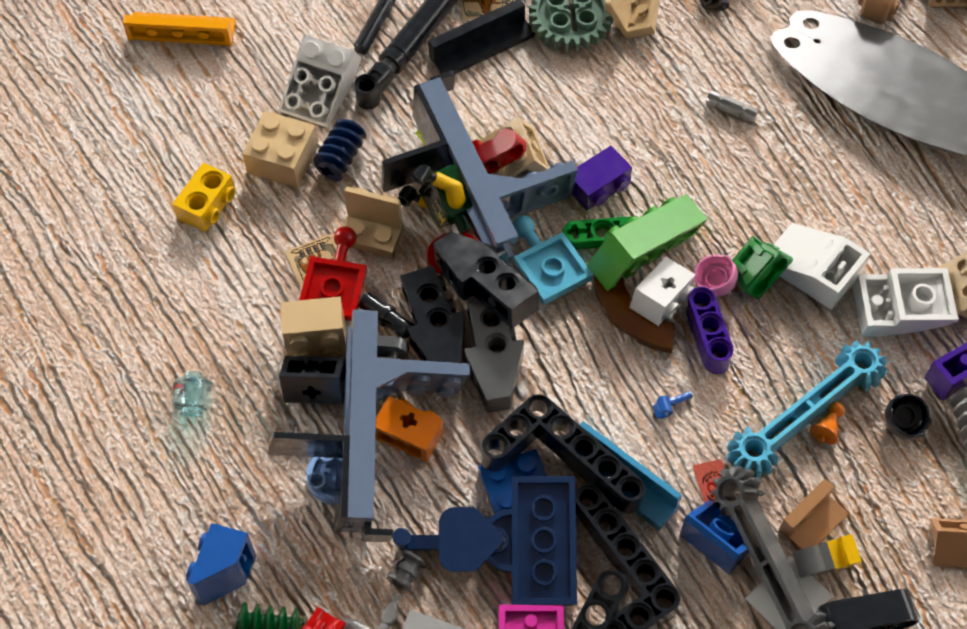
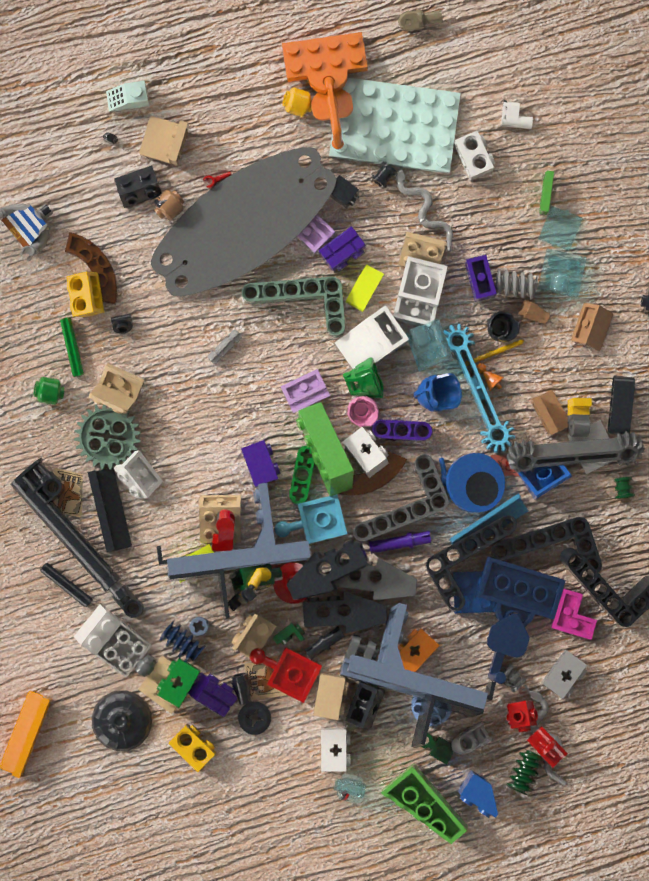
camera: 75 degrees left, 25 degrees up
(191, 497) = (421, 799): none -> bright green wedge
(220, 120) = (121, 720): none -> black hat
(228, 356) = (329, 761): none -> white brick
(252, 254) = (246, 723): none -> black gear
(278, 502) = (440, 749): none -> dark green plate
(280, 194) = (212, 694): none -> dark purple brick
(283, 140) = (177, 694): none -> green brick
(297, 108) = (146, 665): none -> dark grey plate
(299, 233) = (242, 686): none -> black cone
(303, 538) = (474, 737): none -> light grey piece
(354, 595) = (522, 715): none -> red brick
(365, 162) = (193, 628): none -> sand blue bush
(386, 265) = (285, 634): none -> dark green bracket
(536, 52) = (138, 475): none -> white bracket
(560, 379) = (400, 542): none -> dark purple pin
(606, 367) = (408, 509): none -> dark grey beam
(674, 439) = (475, 482): none -> blue piece
(717, 205) = (305, 391): none -> lavender plate
(788, 361) = (439, 392): none -> blue helmet
(841, 325) = (429, 345): none -> clear light blue plate
(842, 168) = (302, 294): none -> sand green beam
(868, 426) = (496, 351): none -> yellow axle
(881, 237) = (364, 288): none -> neon yellow slope
(916, 198) = (342, 249): none -> dark purple brick
(922, 163) = (316, 234): none -> lavender plate
(929, 43) = (216, 179): none -> red hand
(947, 452) = (531, 311): none -> medium nougat cone

